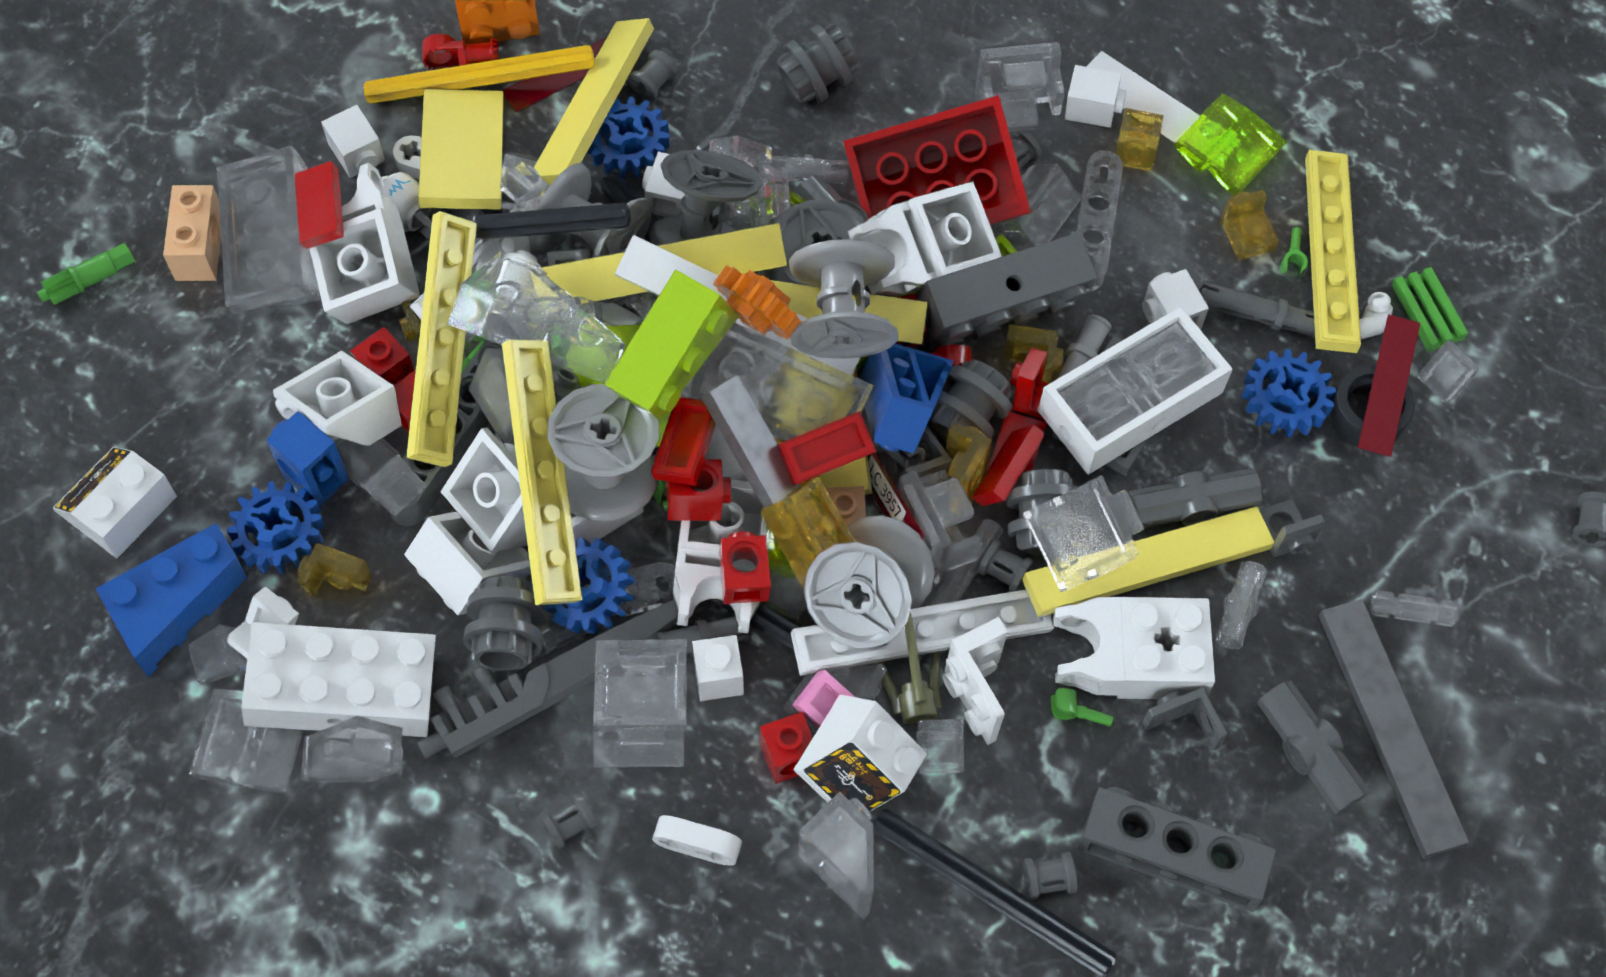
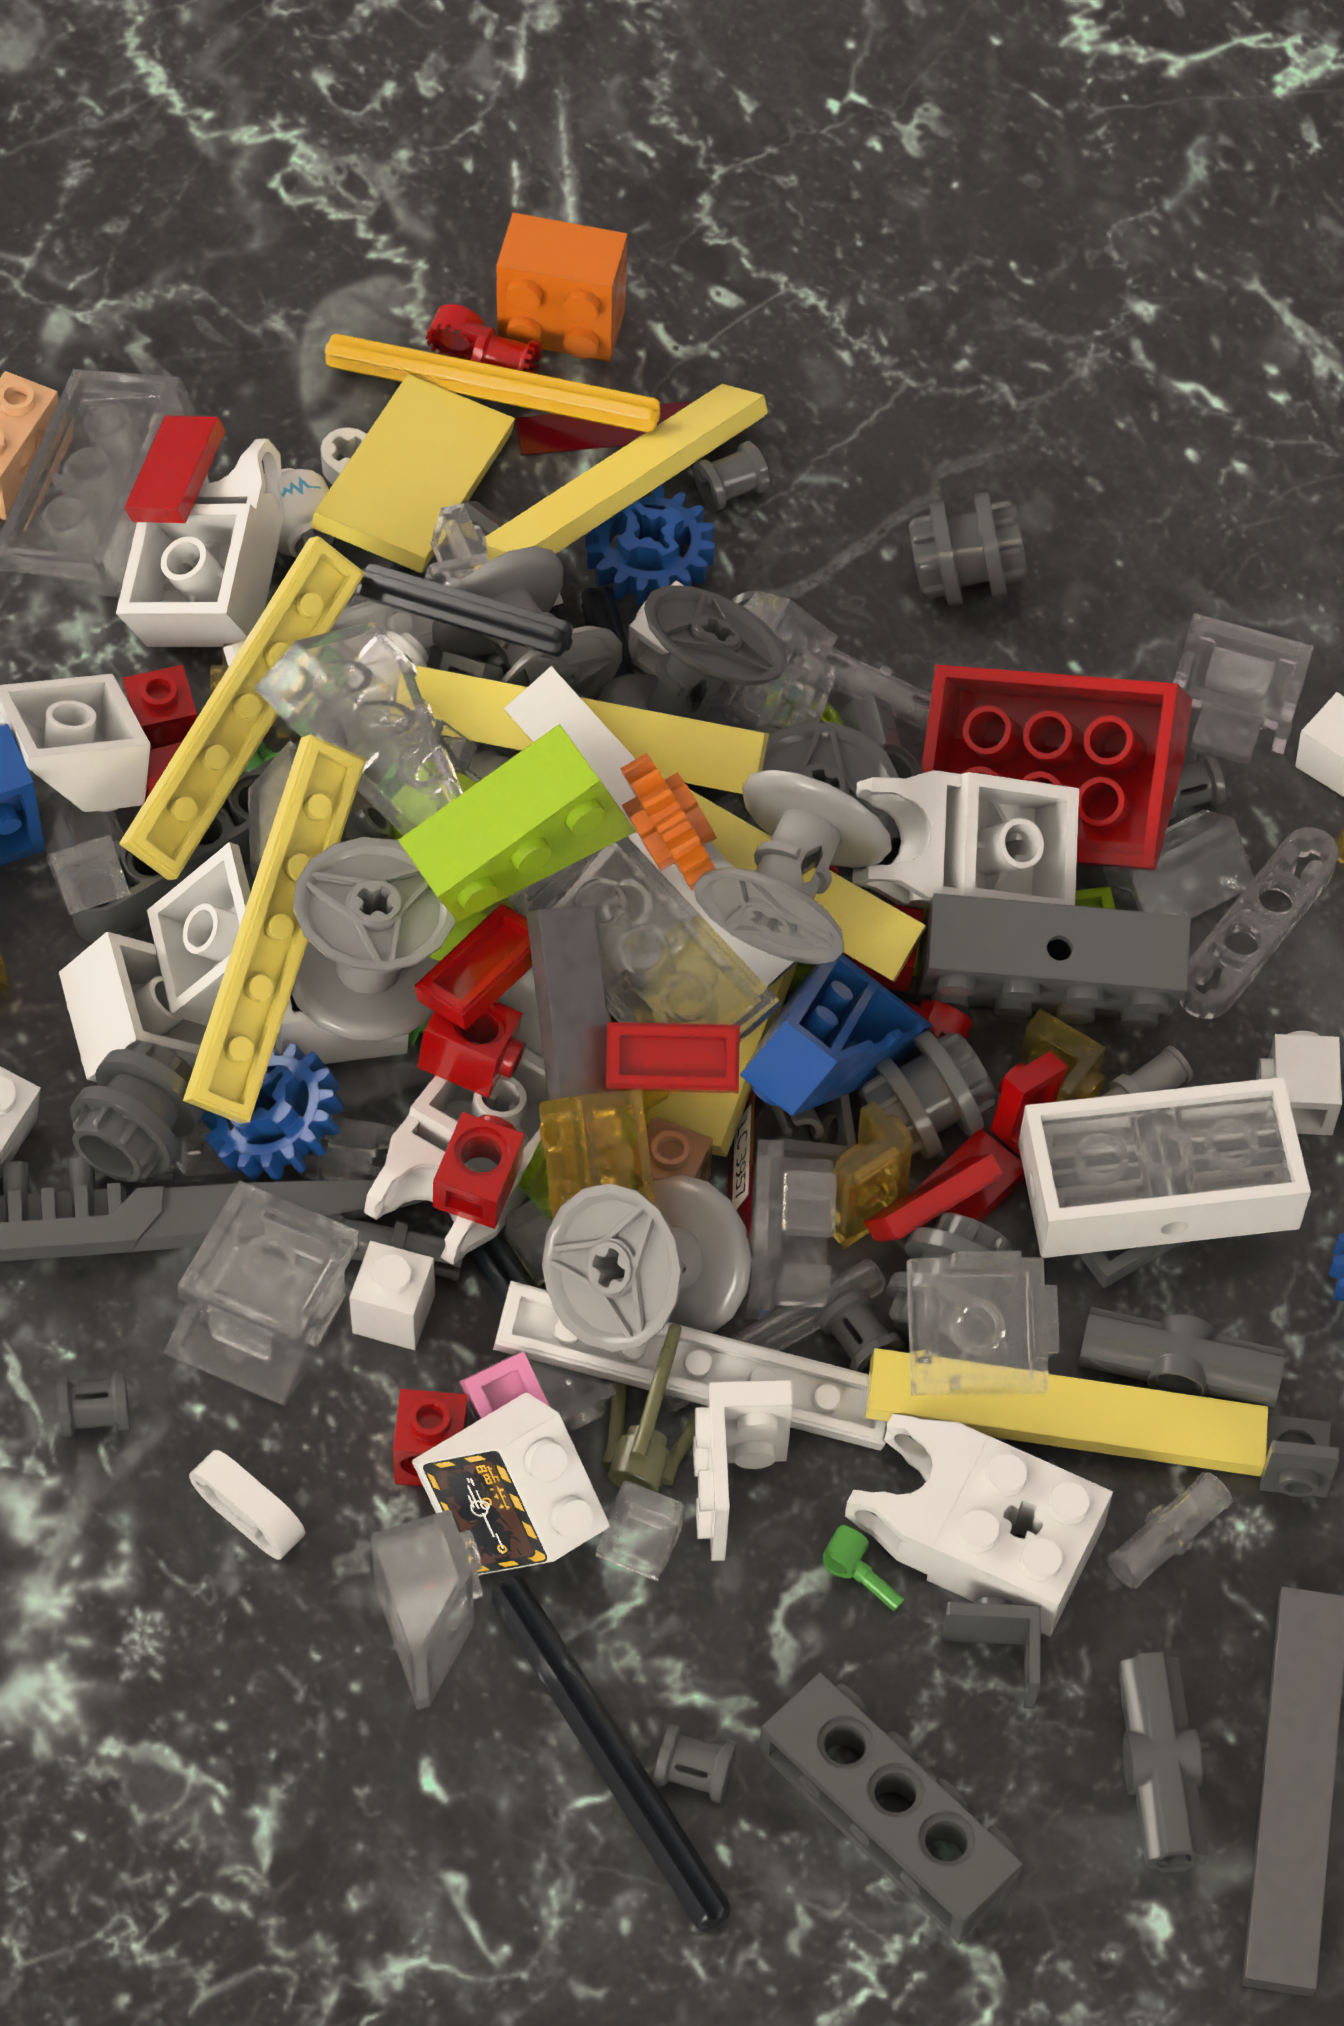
camera: 25 degrees right, 5 degrees down
(353, 140) = (278, 404): white brick -> none

